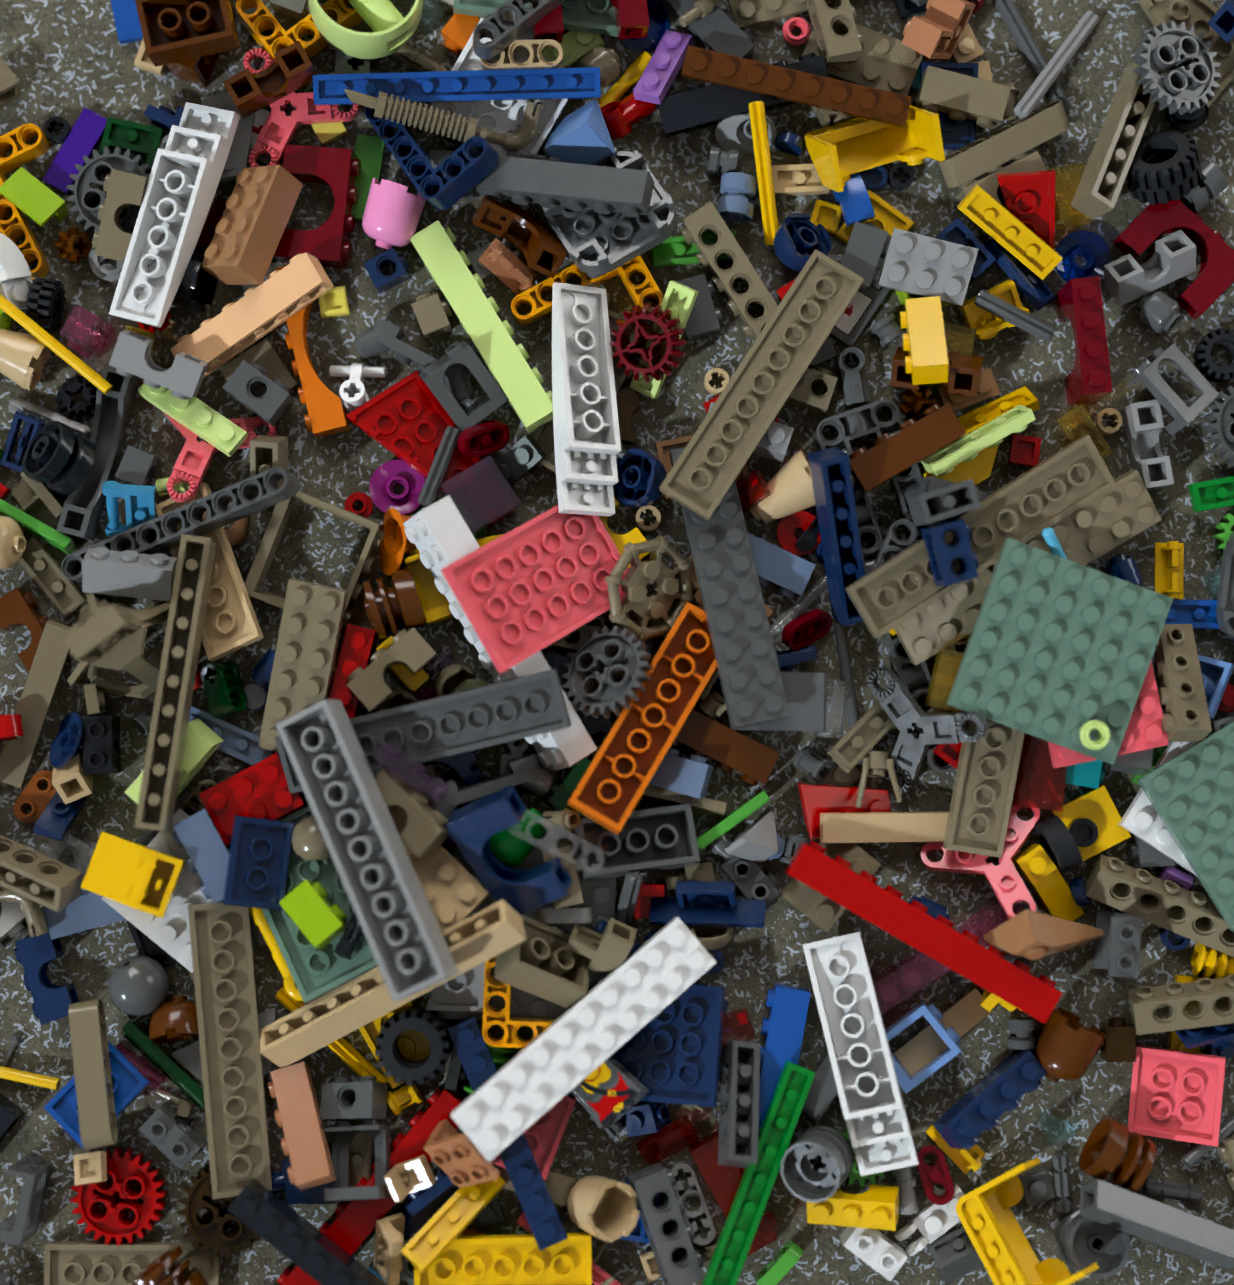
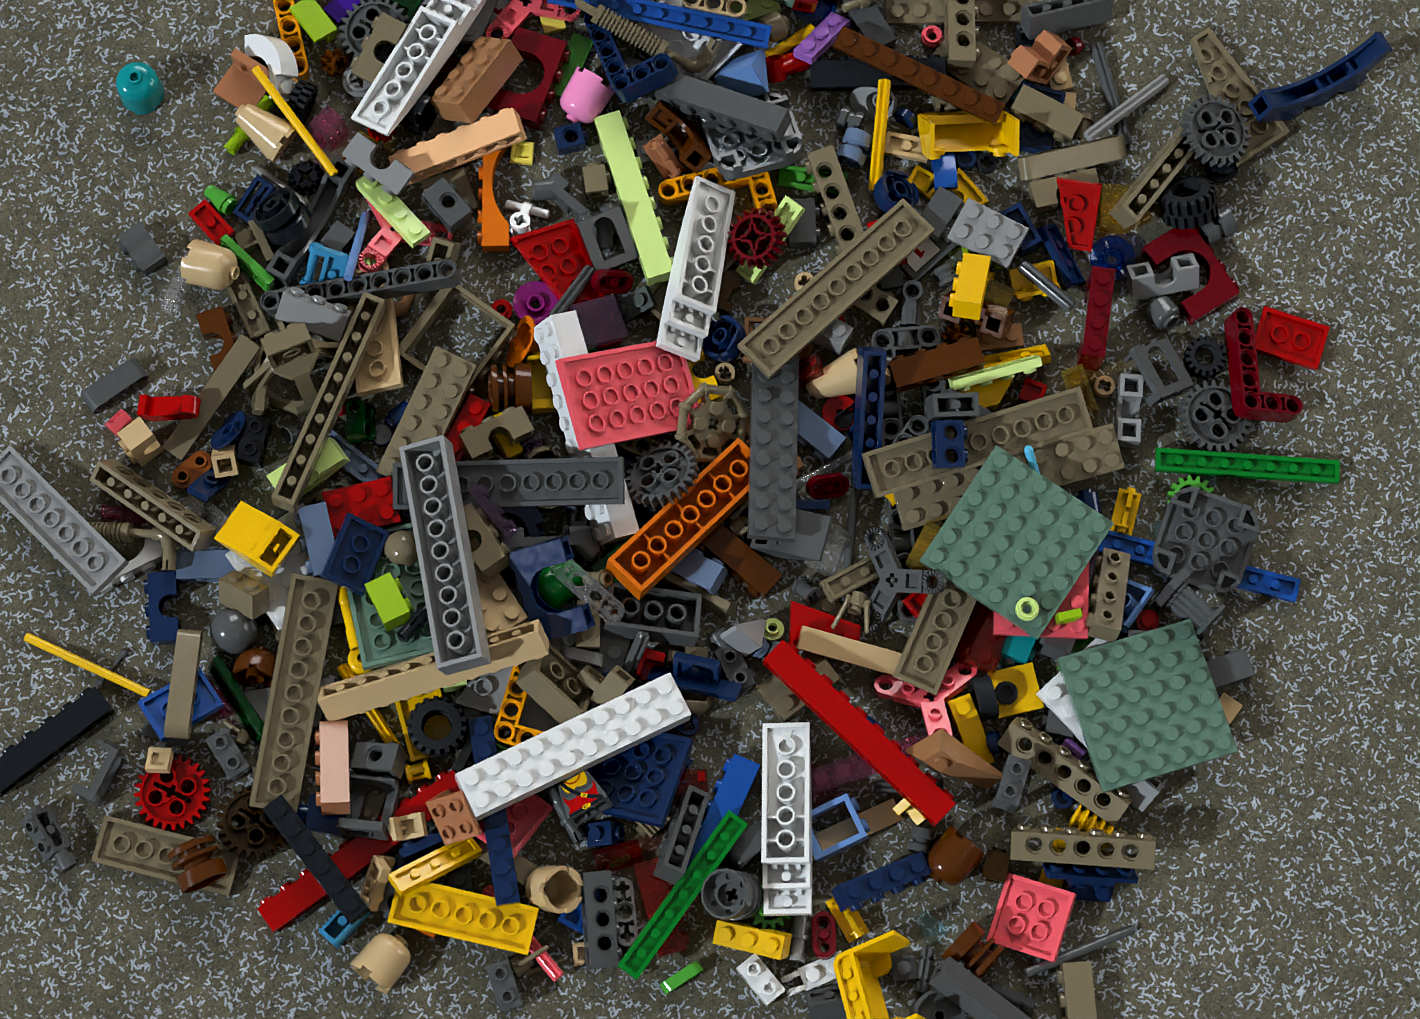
camera: 10 degrees right, 10 degrees down
(137, 943) = (243, 594): none -> dark tan brick
(161, 473) = (356, 247): none -> medium blue bar
(732, 819) = (732, 618): bright green tile -> none
(788, 811) = (774, 635): none -> yellowish green plate
(1009, 232) = (1058, 223): yellow plate -> none
(1144, 729) = (1068, 616): none -> lime tile

